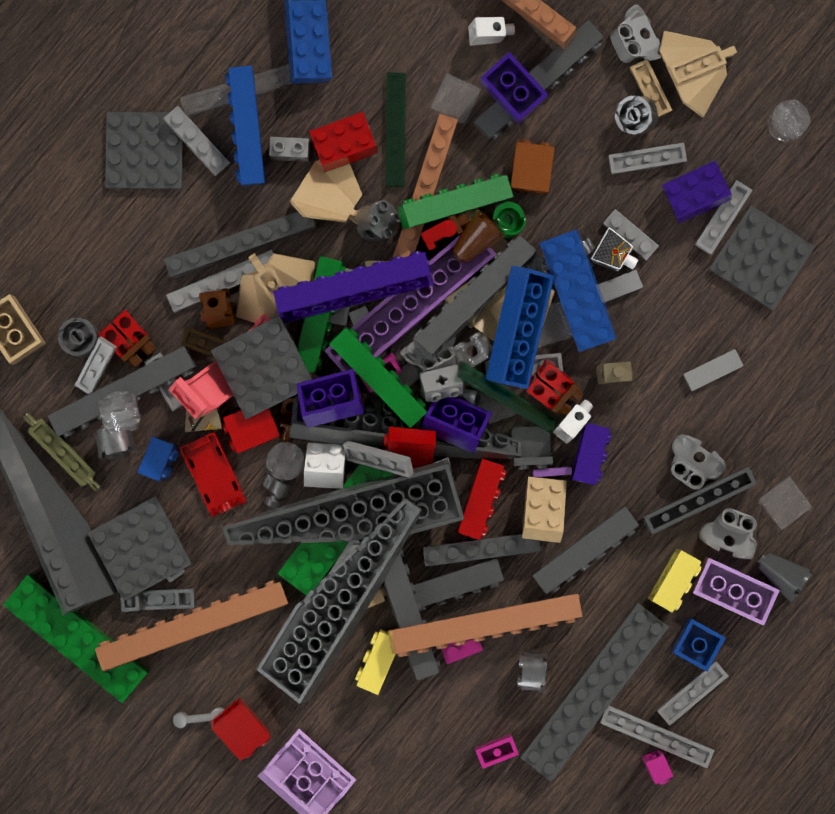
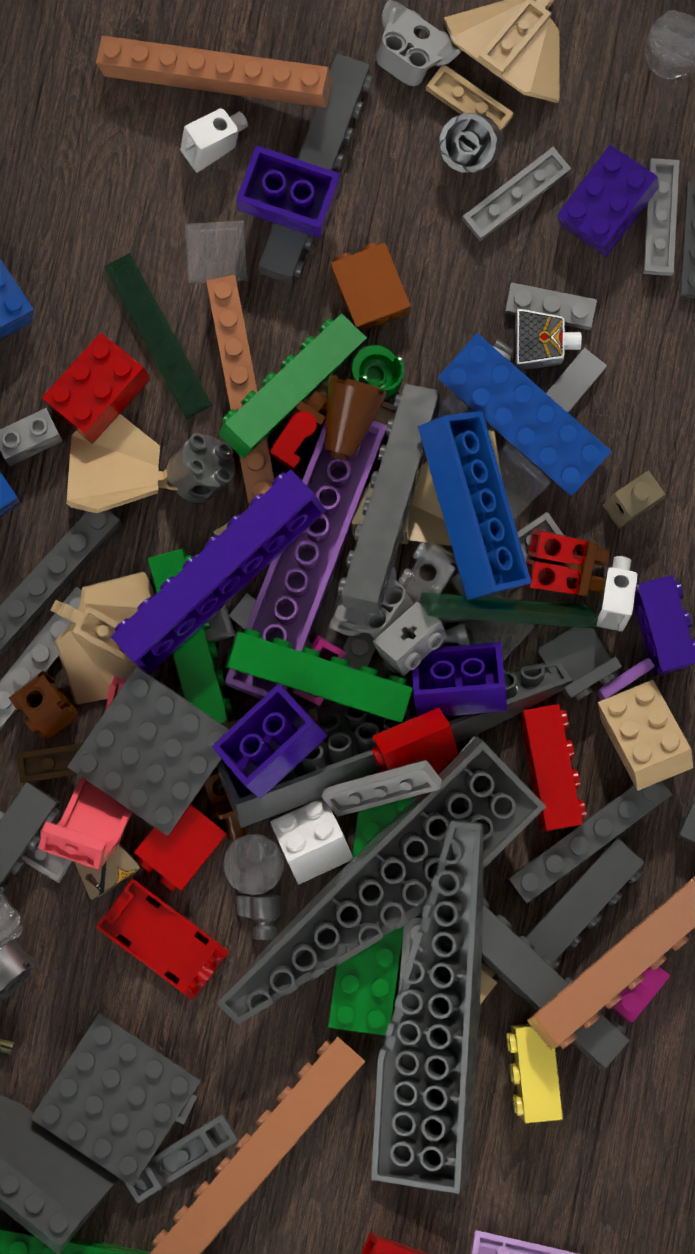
camera: 35 degrees left, 5 degrees down
(158, 459) = (75, 959): blue brick -> none

